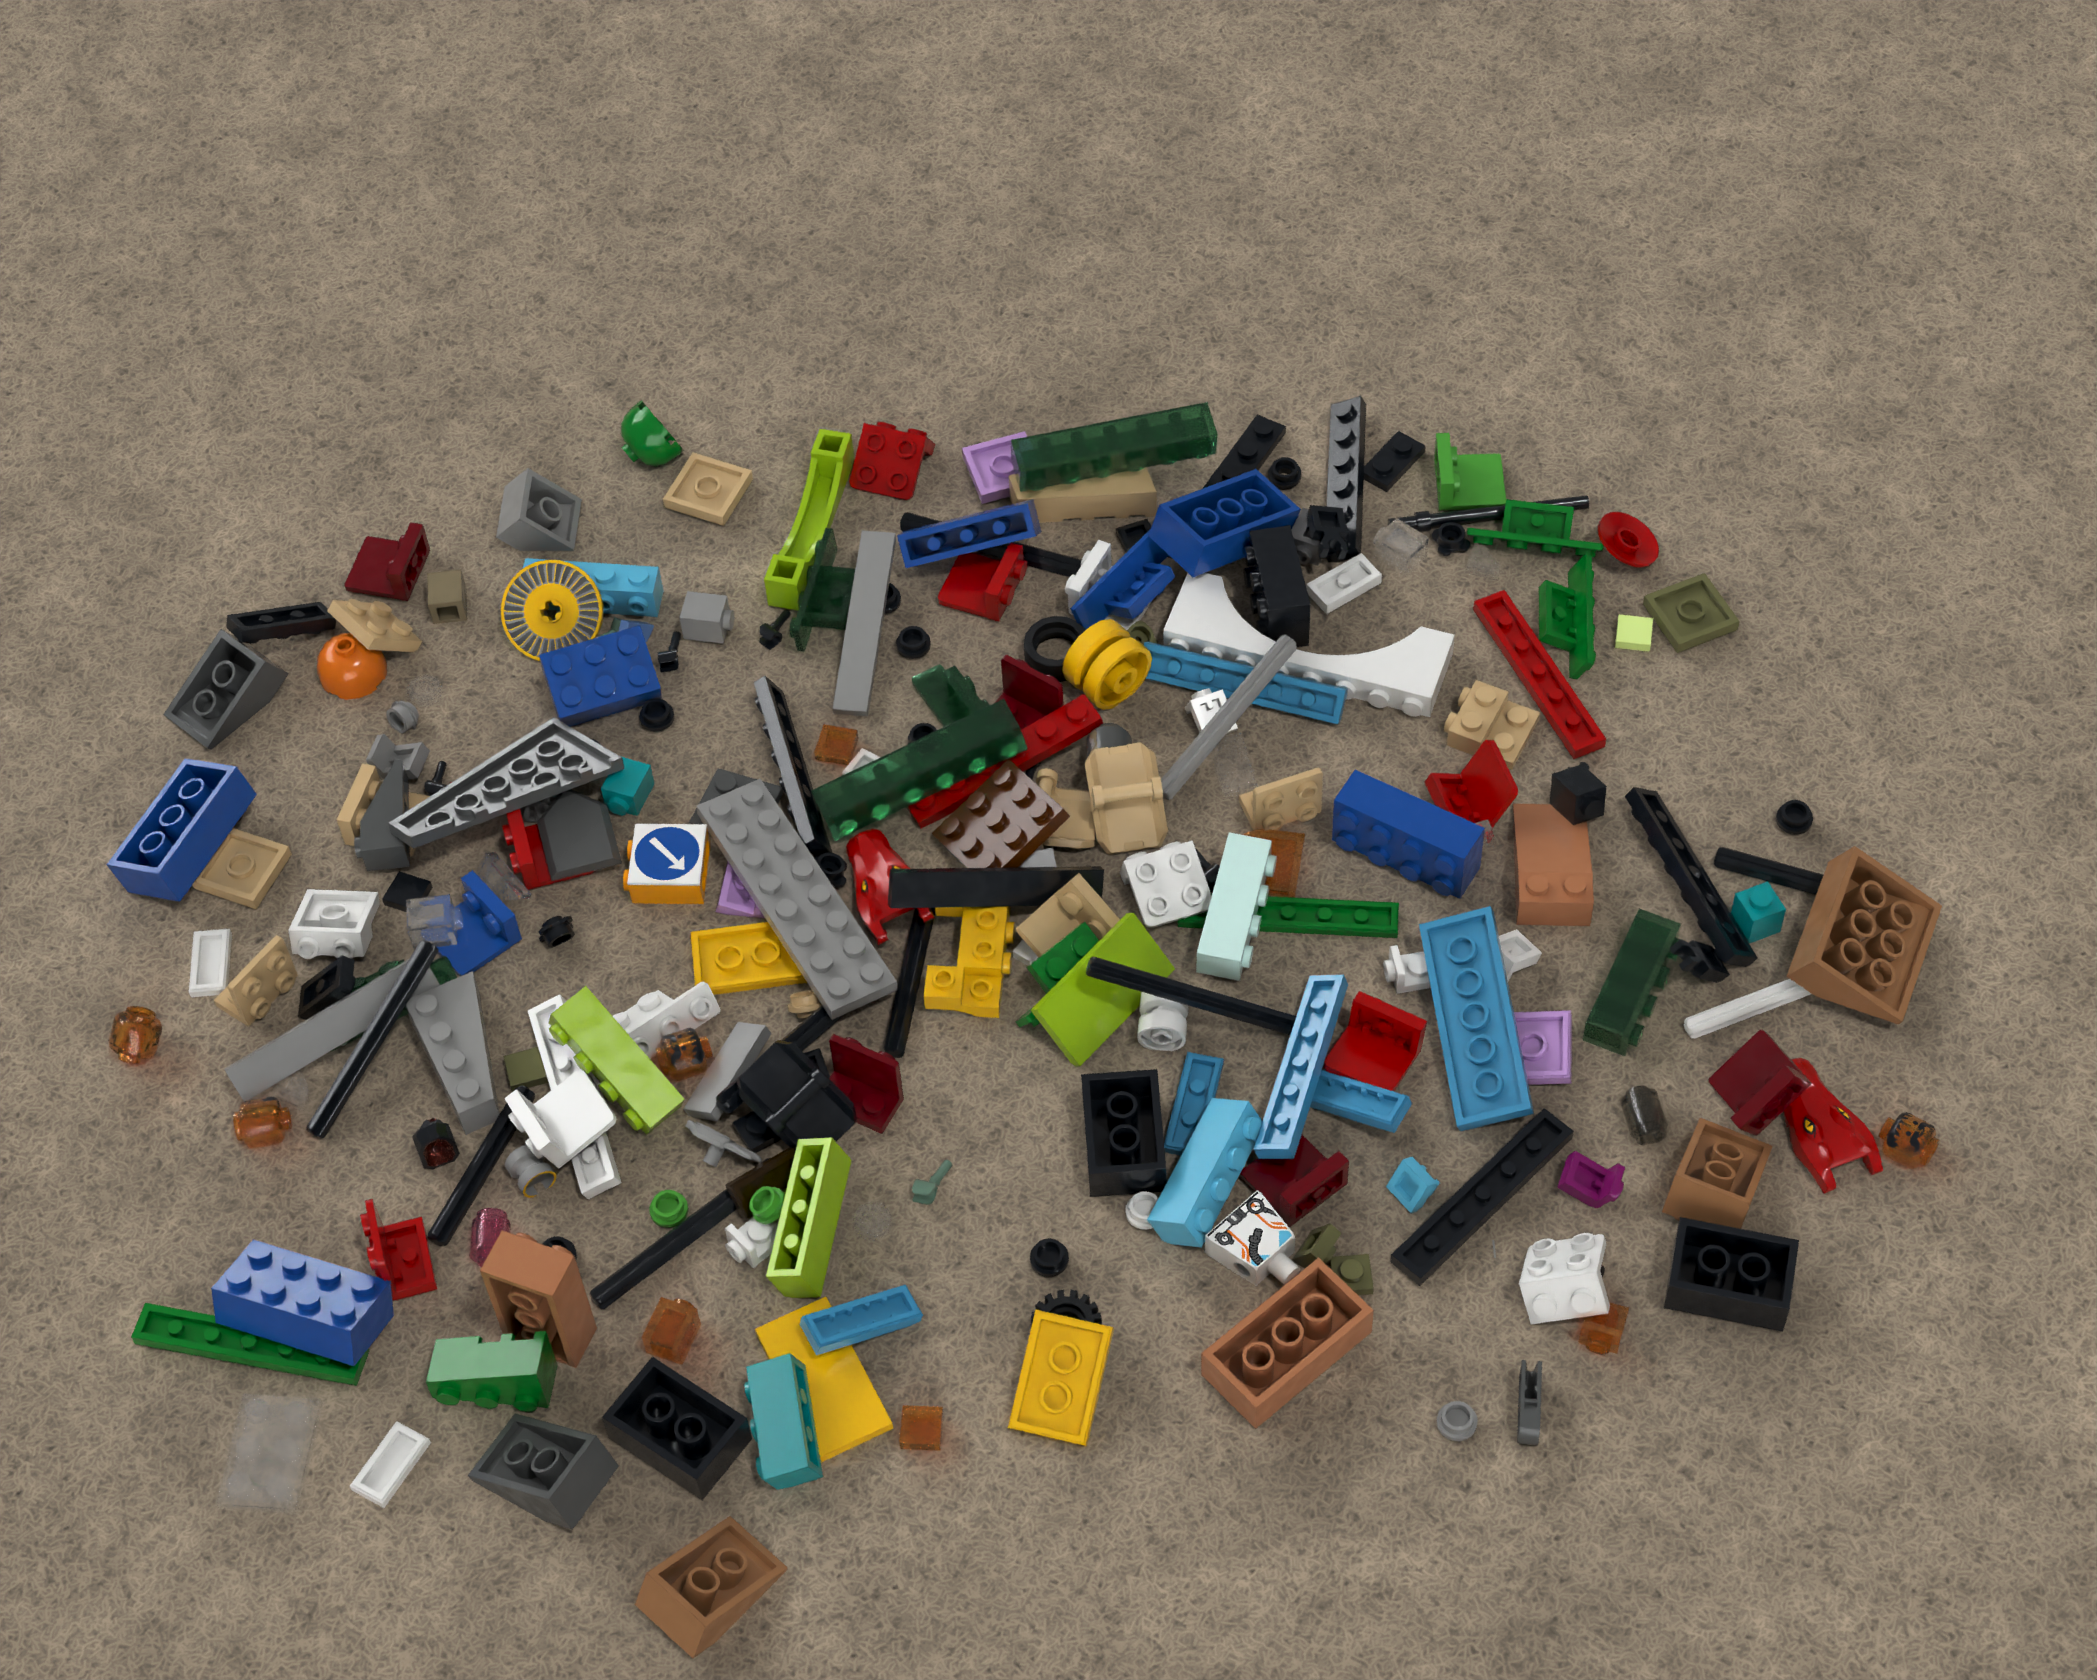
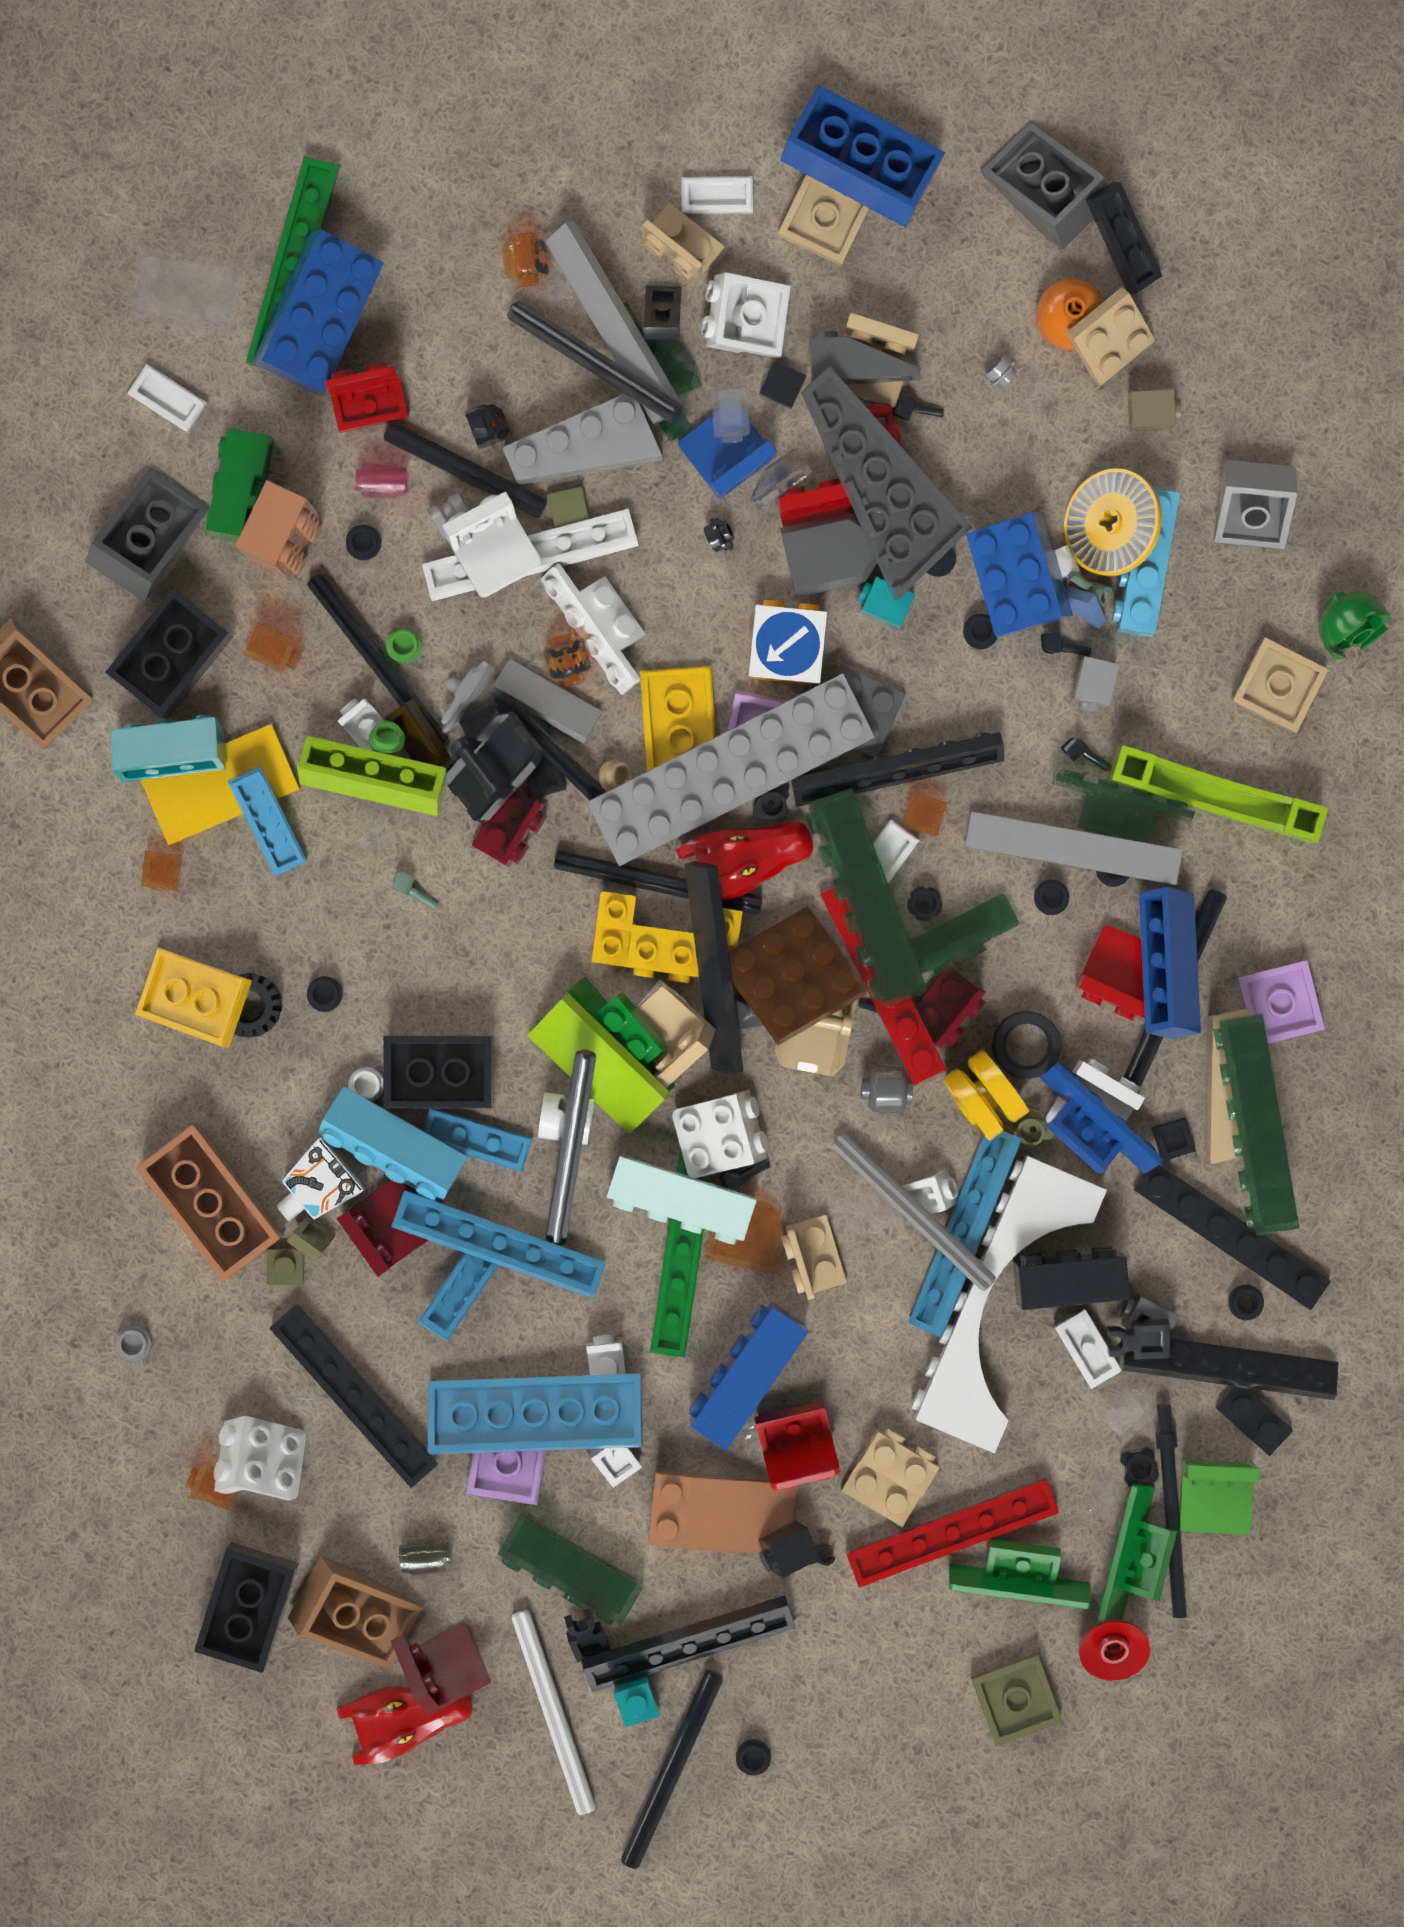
camera: 90 degrees right, 35 degrees up
(135, 1034) = (627, 130): clear orange head -> none
(385, 752) = (942, 368): light grey bracket -> none
(390, 566) = (1203, 344): dark red bracket -> none
(615, 1061) = (546, 594): lime brick -> none
(889, 460) = (1301, 882): red bracket -> none
(1126, 798) = (823, 1102): tan shield -> none
(1215, 522) = (1157, 1232): blue brick -> none
(1377, 1043) = (514, 1315): red bracket -> none
(1412, 1184) = (368, 1333): medium azure tile -> none
(1529, 1404) = (139, 1408): dark grey piece -> none
(1591, 1181) = (358, 1497): magenta bracket -> none
(1634, 632) = (999, 1637): yellowish green tile -> none
(1864, 937) = (590, 1796): medium nougat slope -> none
(1909, 1140) = (378, 1794): clear orange head -> none

